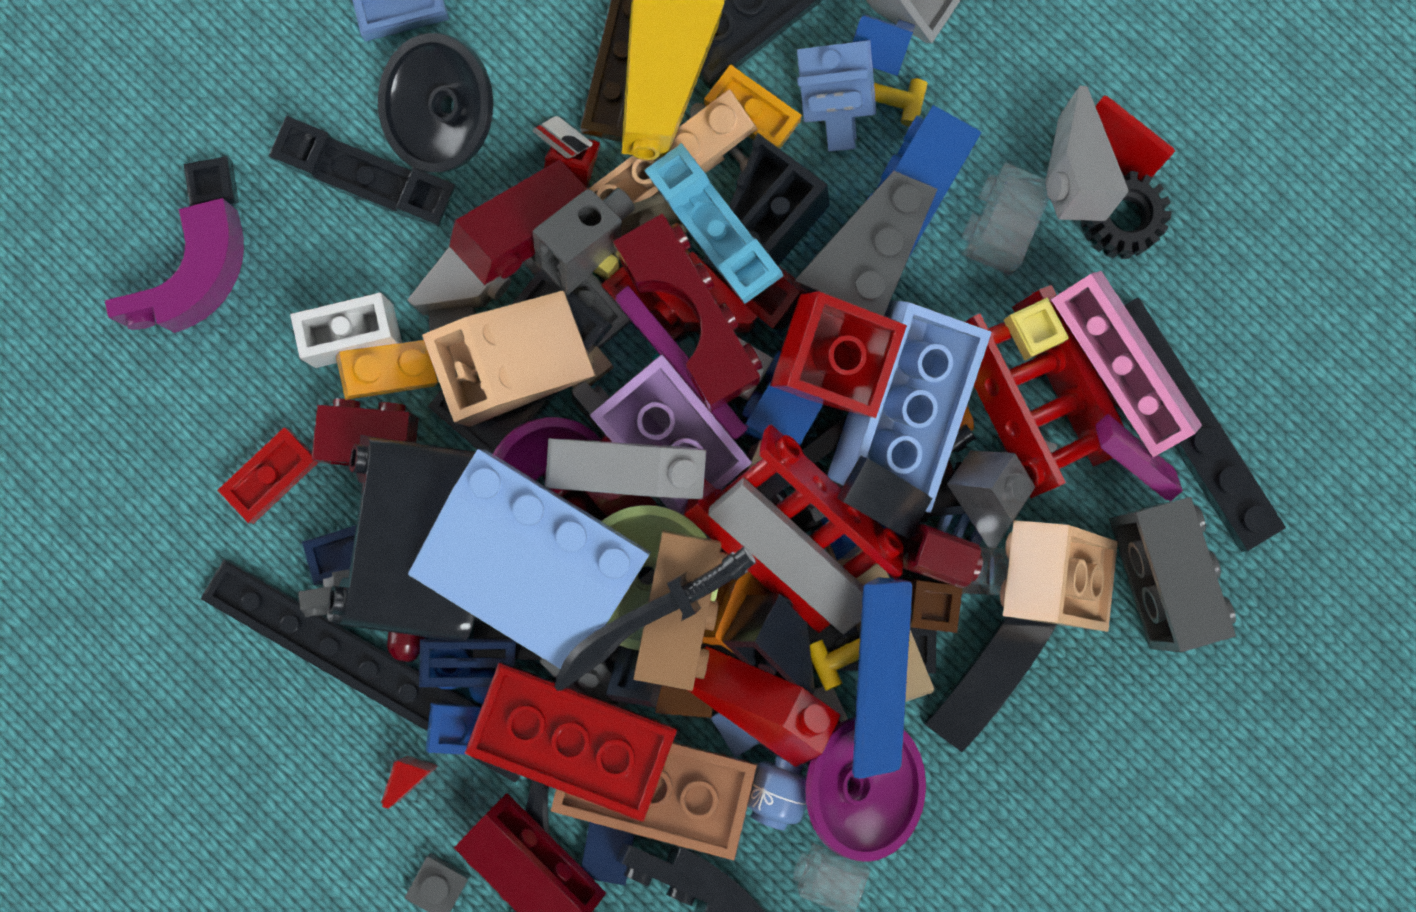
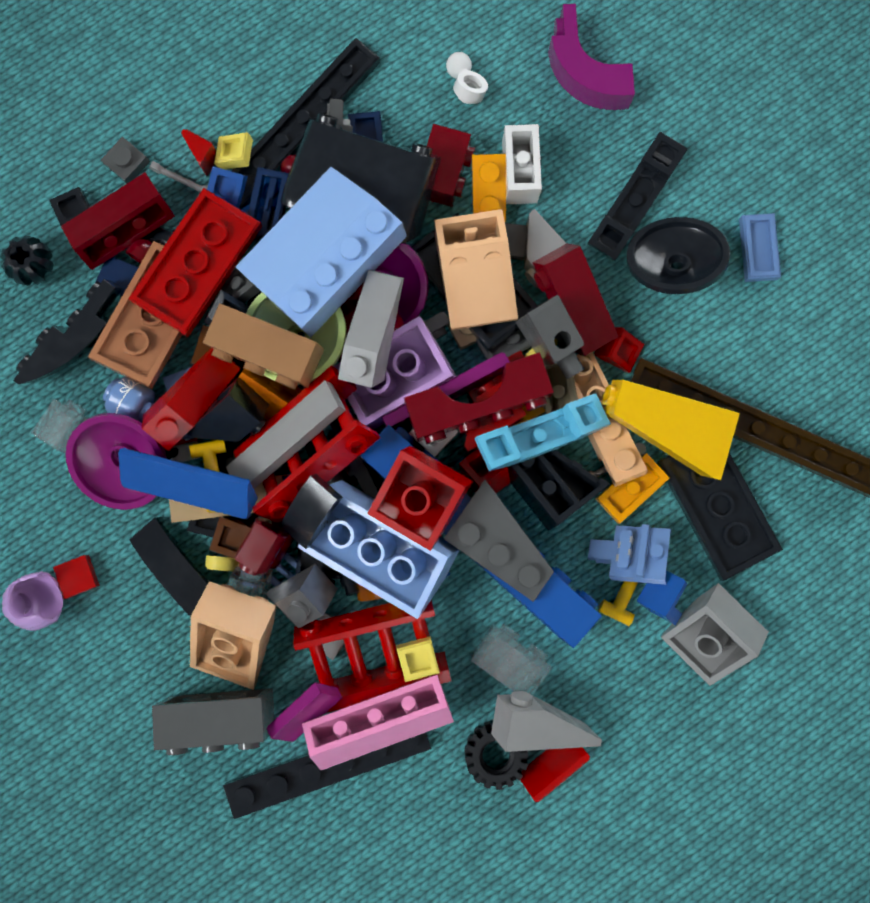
camera: 100 degrees right, 0 degrees up
(211, 181) = (651, 93): black tile -> none
(243, 425) = (469, 85): none -> white plate
(268, 475) = (431, 95): red plate -> none
(397, 732) = (233, 151): none -> light yellow tile
(460, 763) = (161, 170): none -> light grey hinge
(562, 137) = (637, 344): sticker -> none
(564, 830) = (138, 249): none -> dark red hinge
(683, 596) = (267, 344): black sword -> none
(969, 618) = (220, 563): none -> light yellow tile
(1027, 812) = (76, 576): none -> red tile
(1077, 858) = (33, 601): none -> lavender hair

